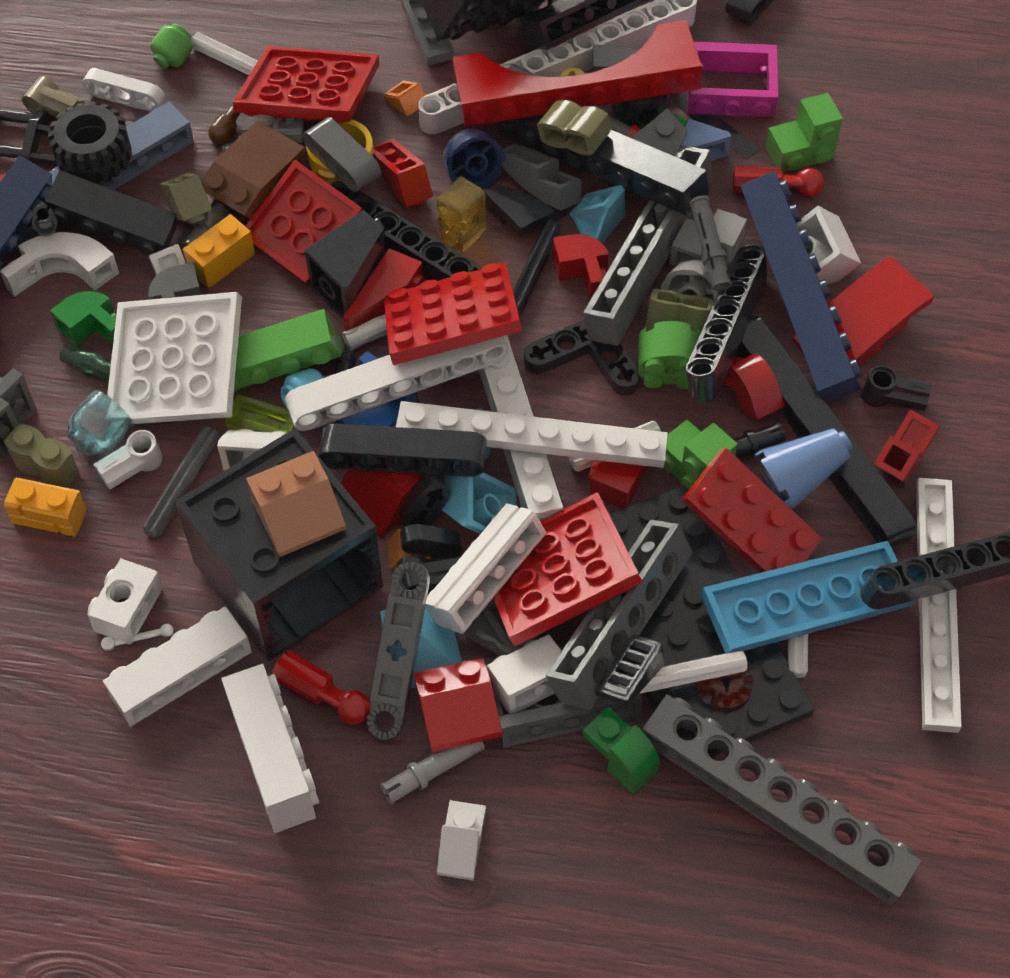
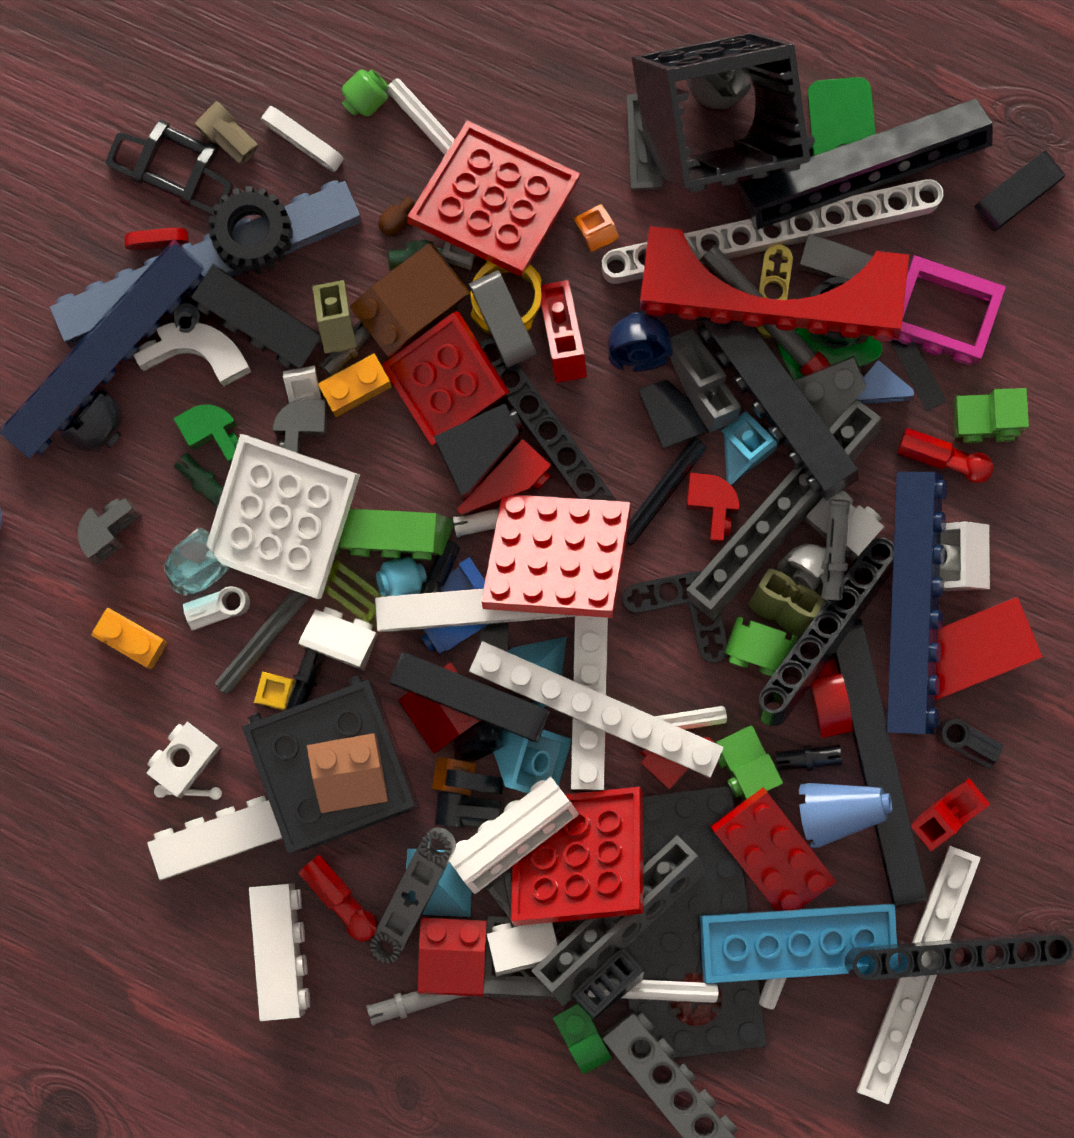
camera: 20 degrees right, 25 degrees up
(41, 456) = (139, 586): olive brick -> none
(461, 214) = (605, 418): clear yellow brick -> none
(461, 840) = (423, 1073): white slope -> none
(574, 127) = (747, 363): olive brick -> none

